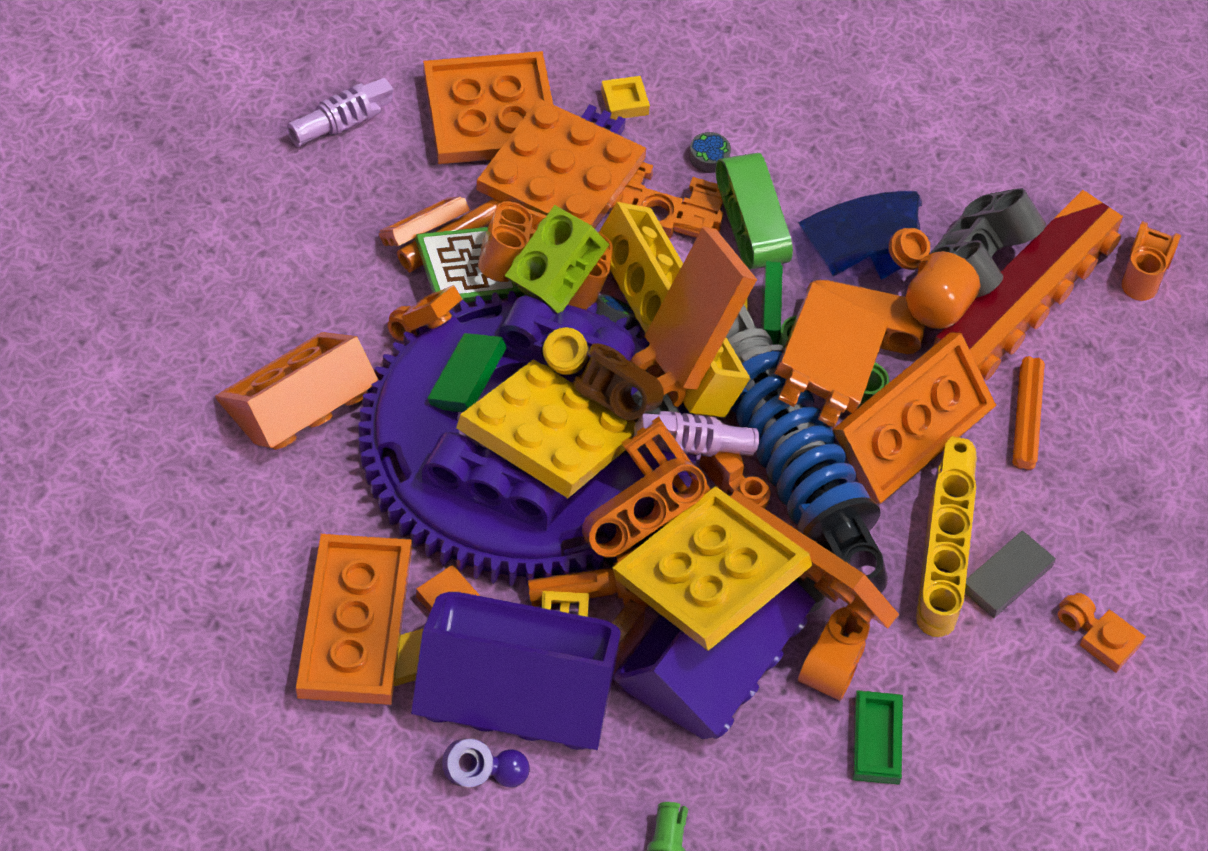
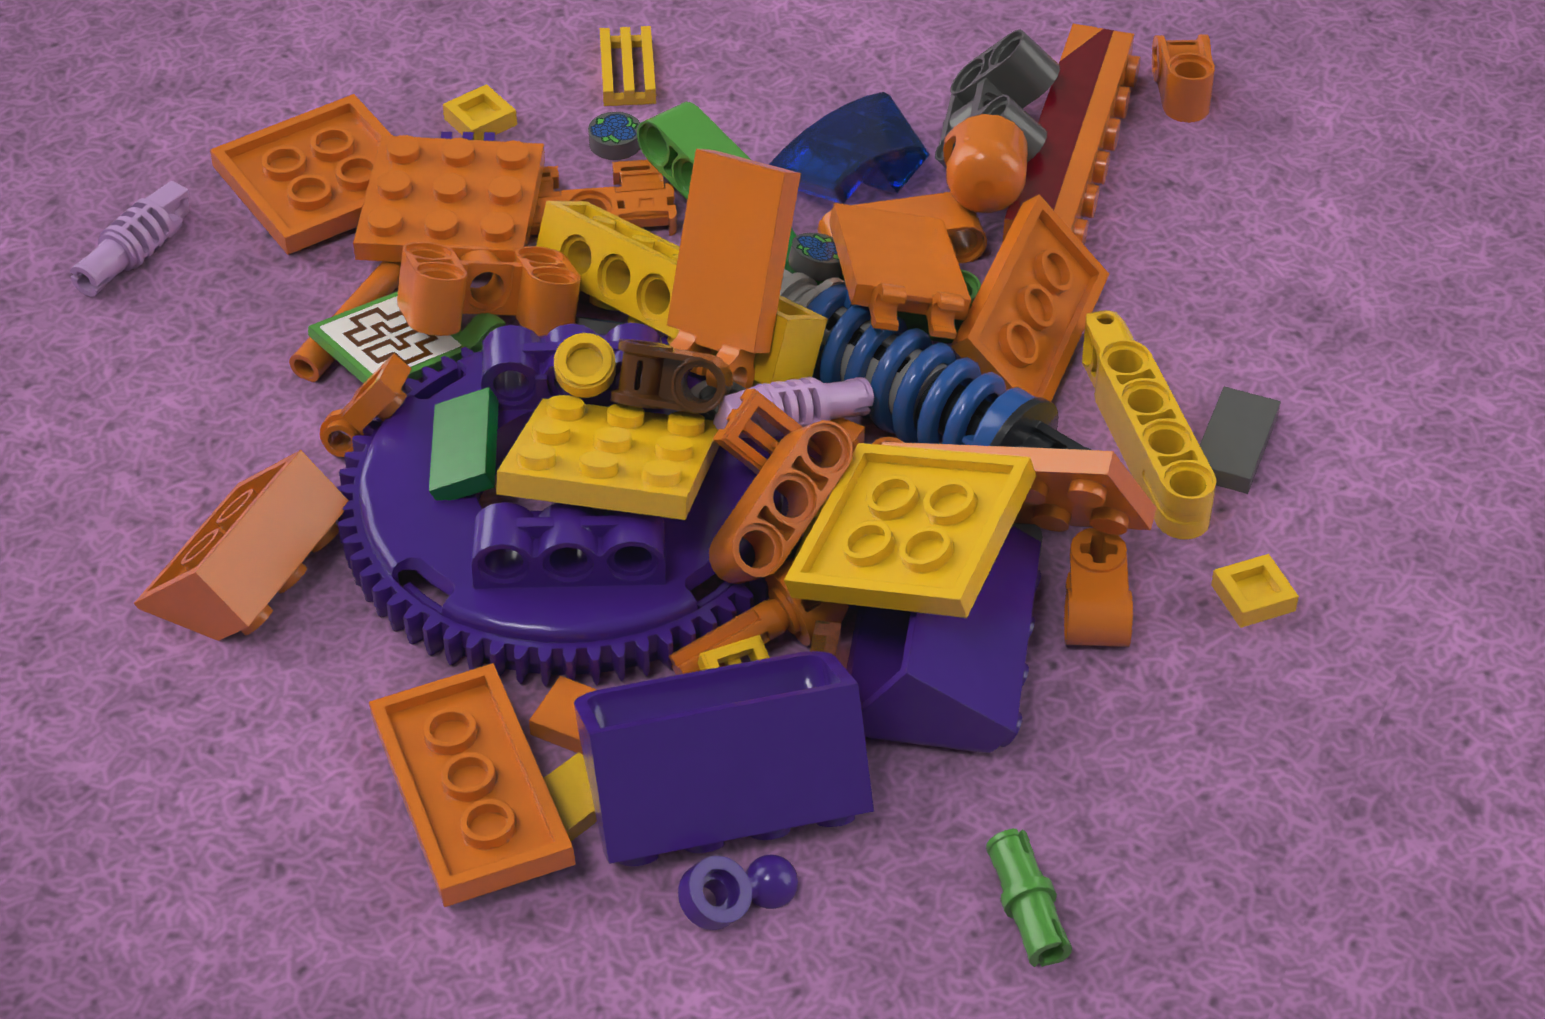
camera: 20 degrees left, 10 degrees down
(423, 221) = (306, 313): tile -> none
(557, 259) = (514, 271): lime brick -> none
(758, 72) = (626, 43): none -> yellow tile
(779, 317) = (815, 256): none -> tile
(878, 737) = (1199, 669): green tile -> none
(909, 247) = (920, 137): orange plate -> none
(951, 695) = (1254, 590): none -> yellow tile
(1028, 413) = (1150, 269): orange axle -> none
(1107, 639) = (1390, 462): orange plate -> none

